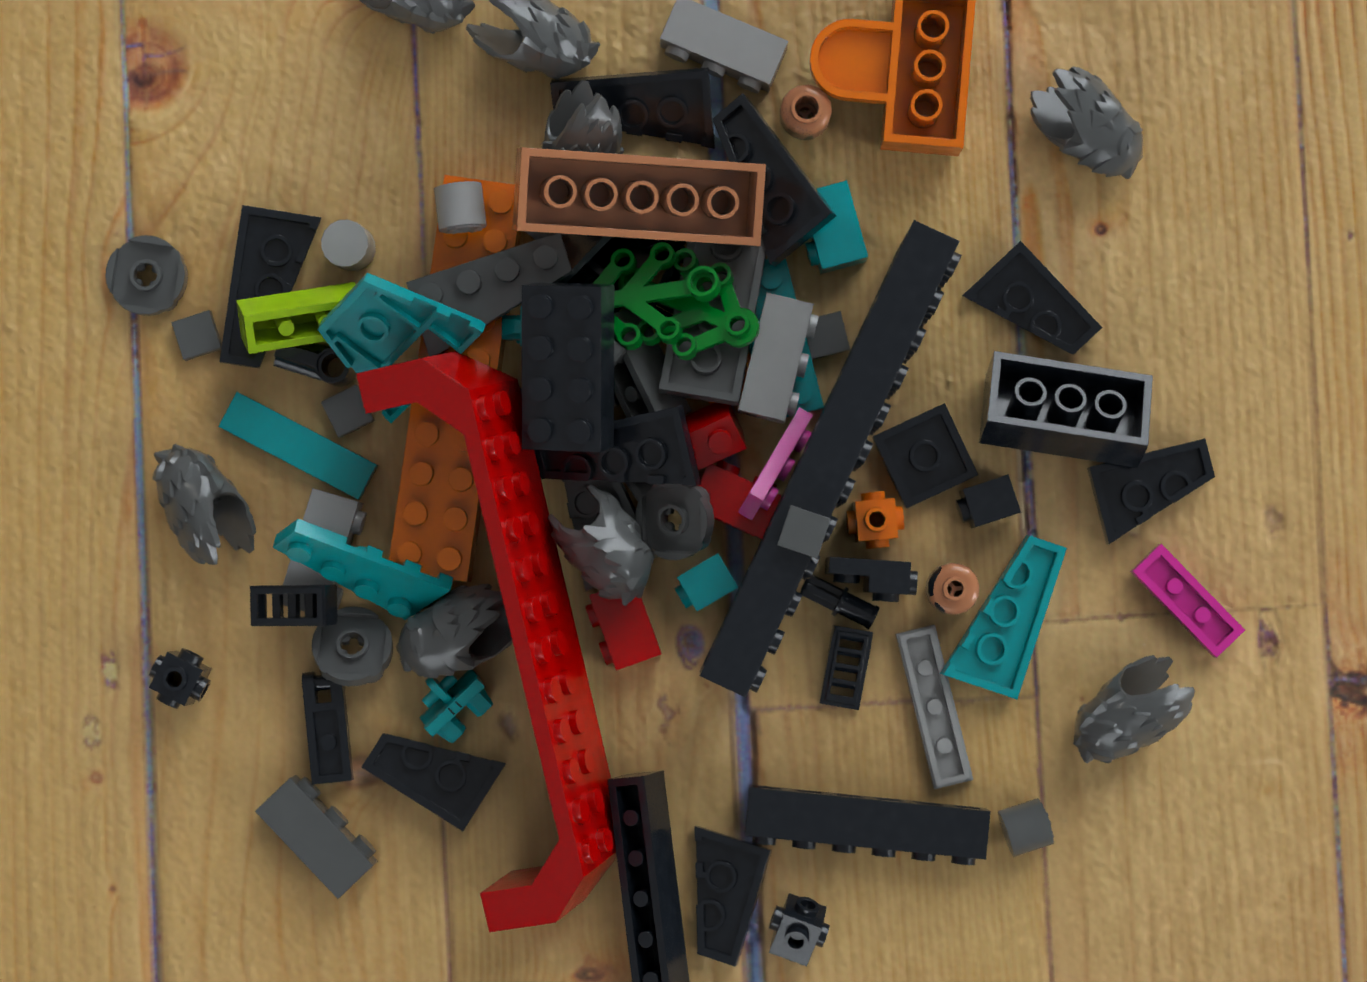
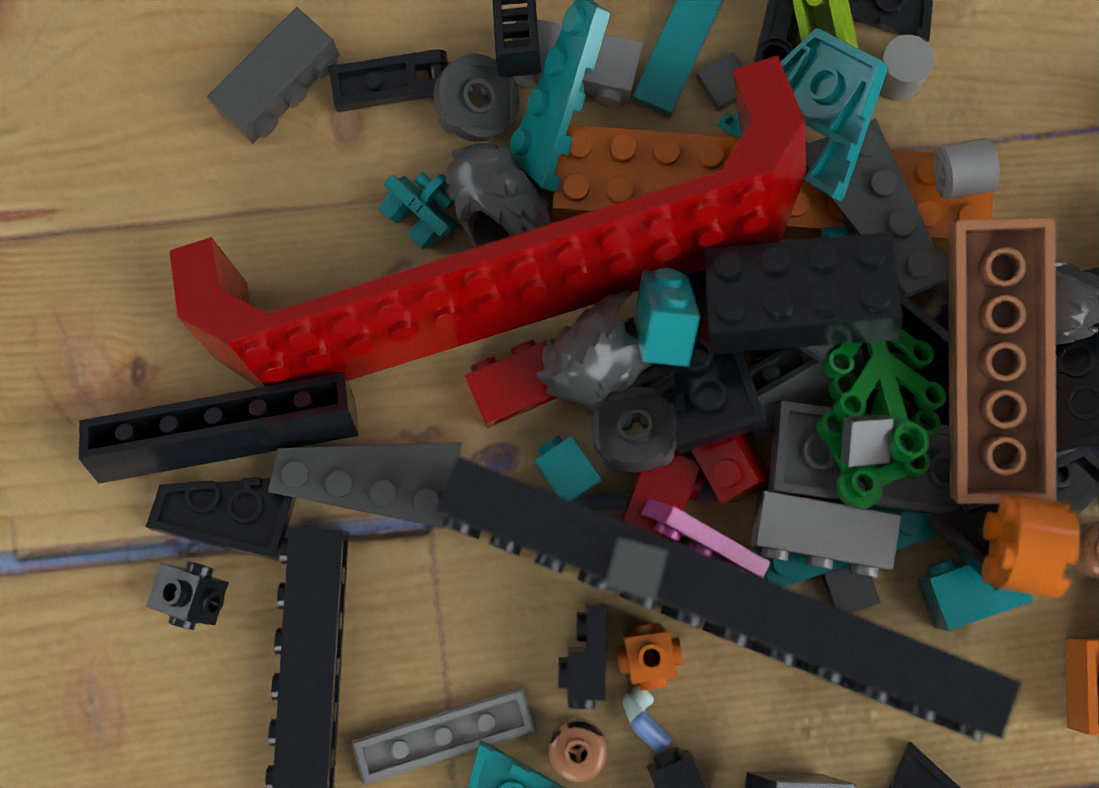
camera: 80 degrees right, 5 degrees down
(434, 777) = (342, 193): black wing -> none
(582, 488) = (666, 317): none -> teal piece
(700, 319) = (866, 440): none -> tile
(705, 748) = (372, 479): none -> dark grey wing
(800, 190) = (1030, 545): none -> orange brick
(839, 601) = (555, 621): black axle -> none
(863, 654) = (519, 635): black slope -> none
(925, 456) = (725, 709): black plate -> none
(933, 530) = (641, 722): none -> arm

